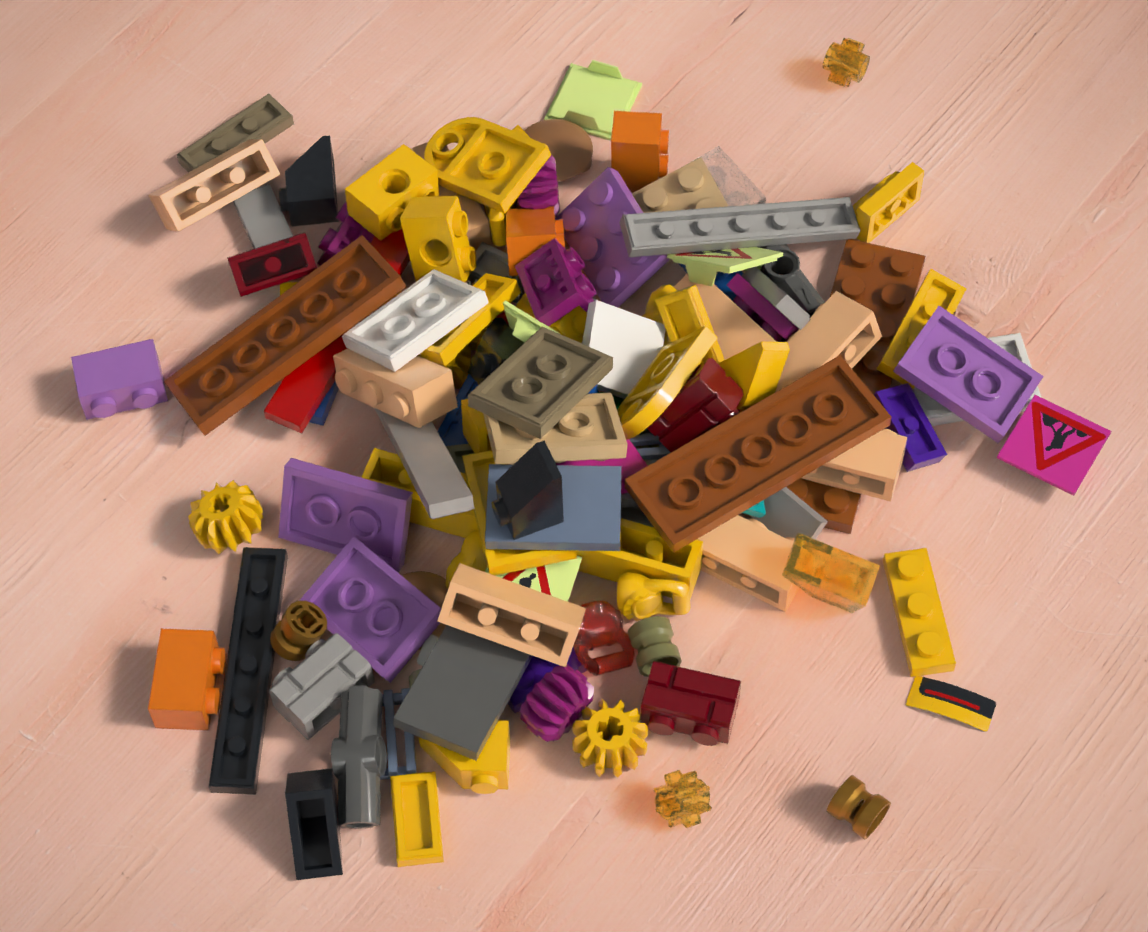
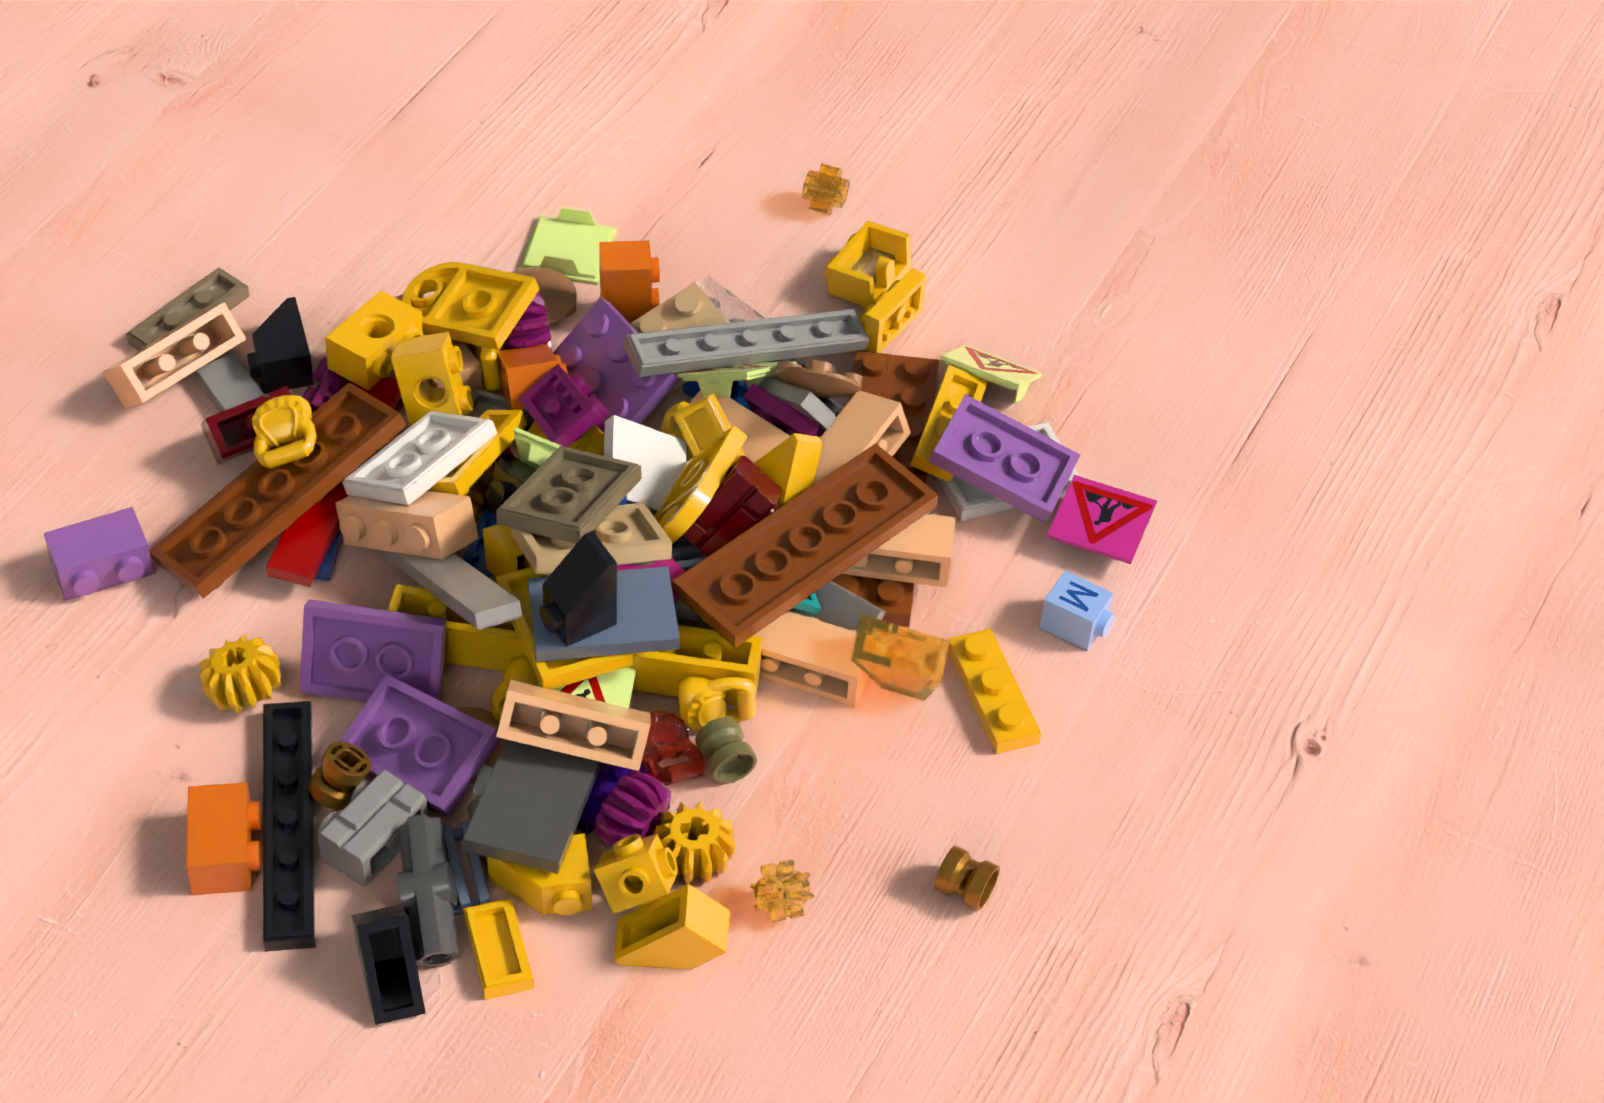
camera: 15 degrees left, 10 degrees down
(294, 270) = (281, 422): none -> yellow piece
(549, 766) = (636, 872): none -> yellow brick
(576, 827) = (673, 932): none -> yellow slope
(690, 703) = (773, 799): dark red brick -> none
(799, 277) = (819, 379): none -> medium nougat dish
(874, 147) = (869, 264): none -> yellow window
(910, 420) = (970, 533): dark purple plate -> none
(951, 702) = (1042, 771): sticker -> none
(974, 271) = (992, 369): none -> yellowish green piece
(1013, 540) = (1077, 611): none -> light blue brick

